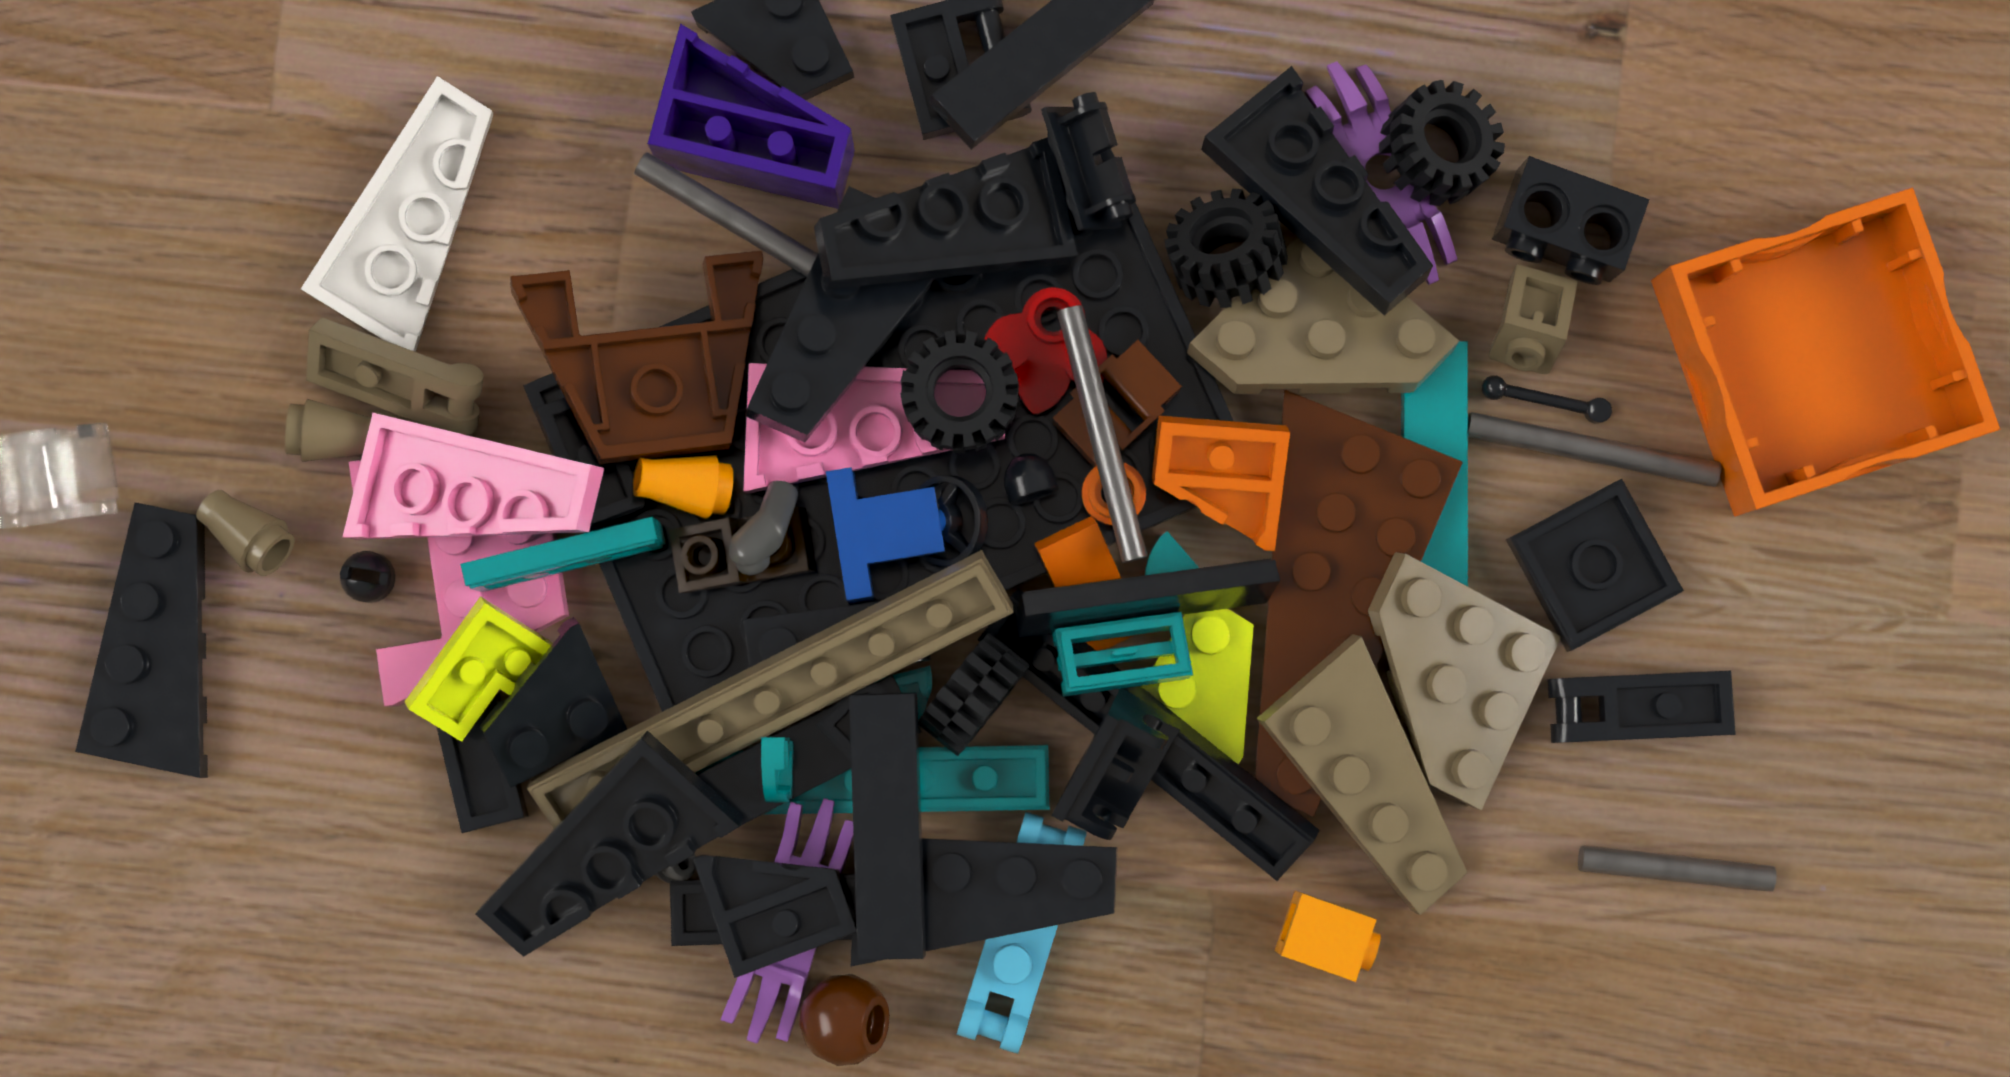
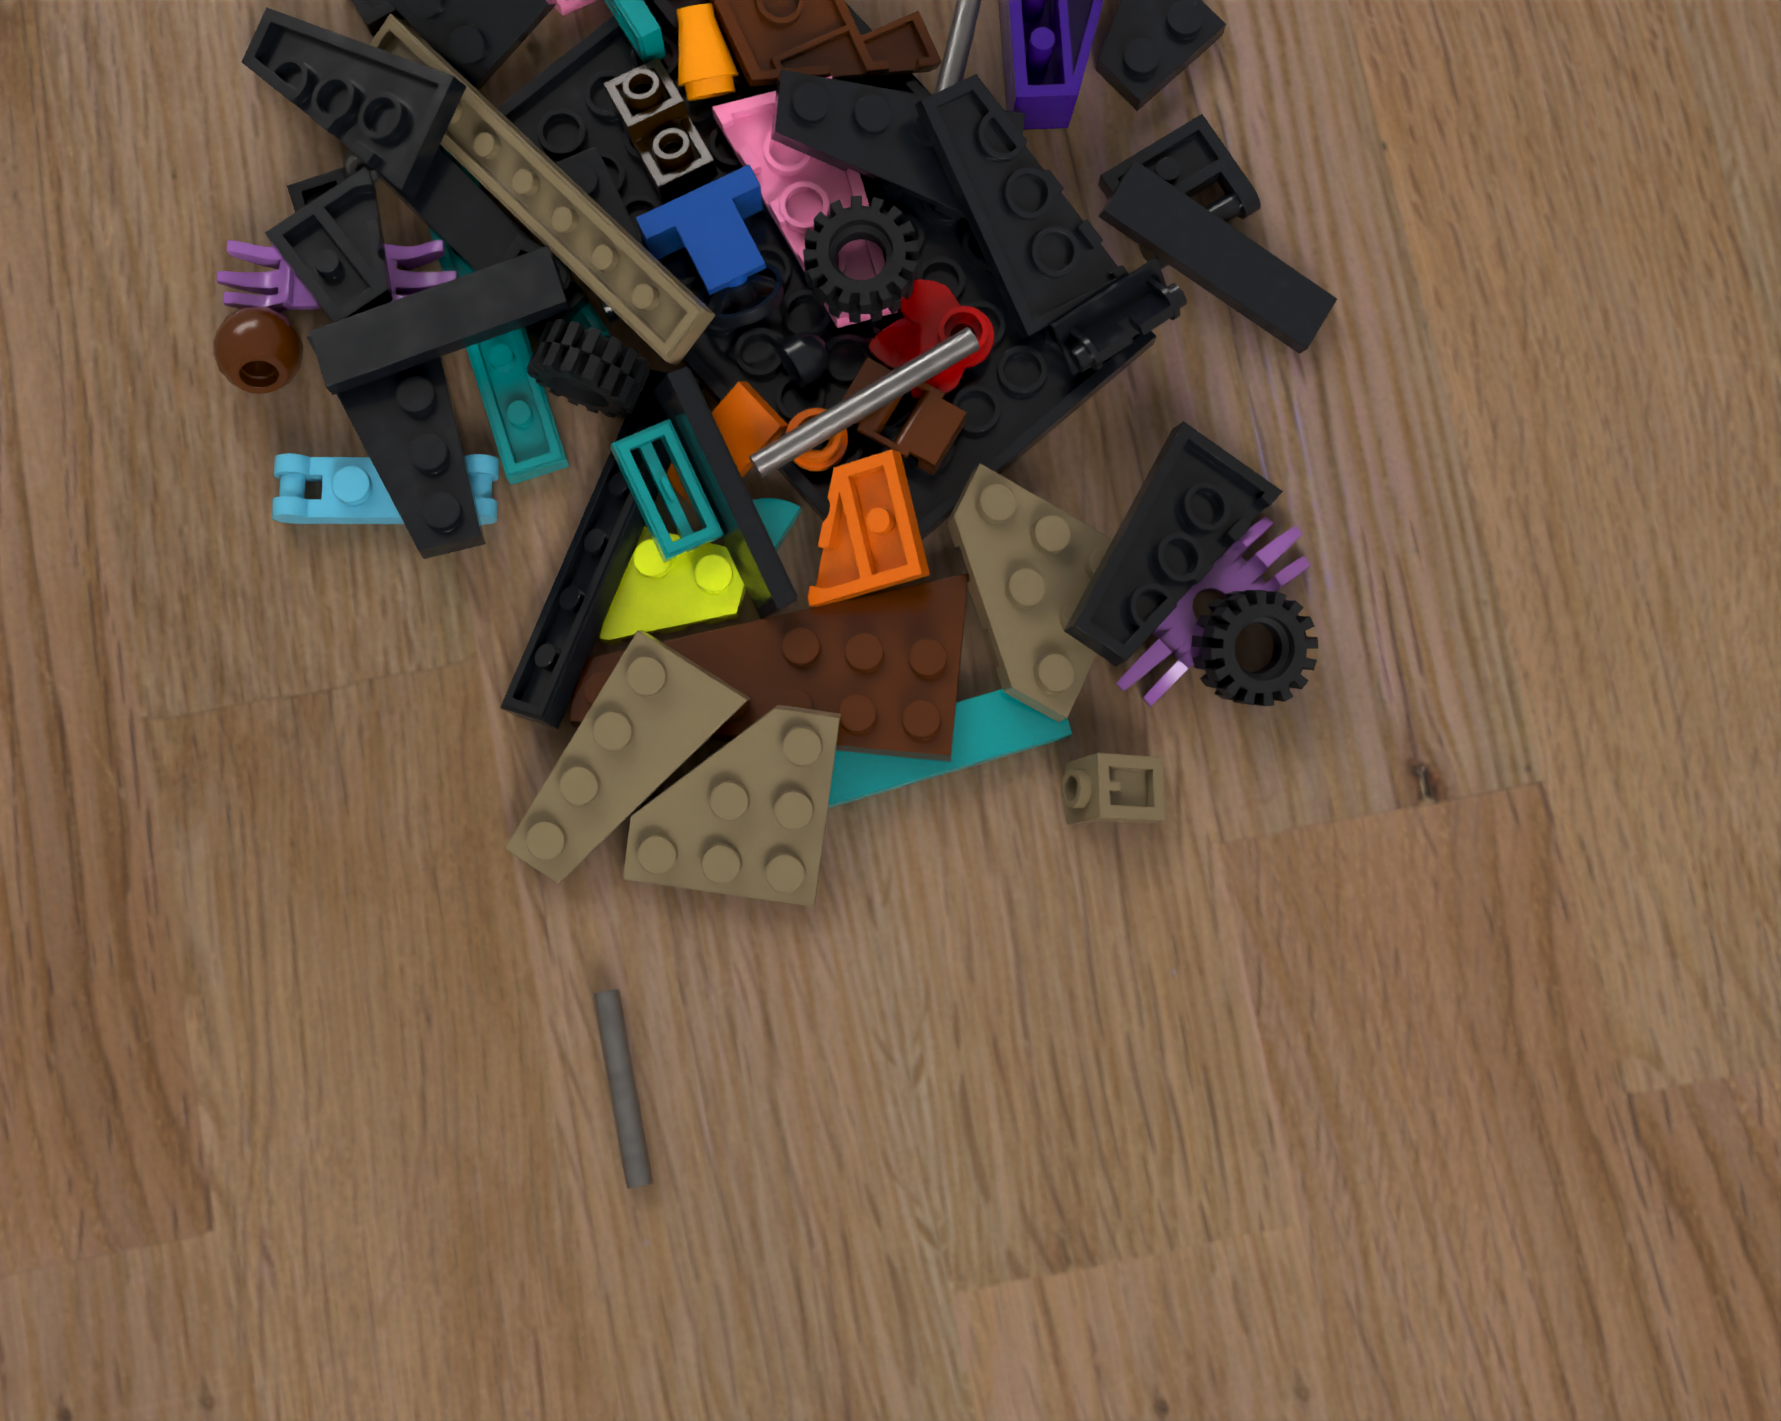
camera: 70 degrees right, 5 degrees down
(765, 530) = (668, 125): dark grey arm -> none
(777, 769) = (467, 210): teal tile -> none
(1117, 765) = (561, 517): black hinge -> none
(1234, 271) = (1083, 473): black tyre -> none
(1328, 937) = (458, 766): light orange brick -> none
(1572, 204) = (1238, 797): black brick -> none
(1593, 449) = (1007, 888): flat silver bar -> none
(1594, 565) = (893, 918): black plate -> none
(1595, 410) = (1047, 881): black hinge -> none
(1644, 706) = (769, 1007): black plate -> none
(1823, 352) = (1174, 1081): orange tile -> none

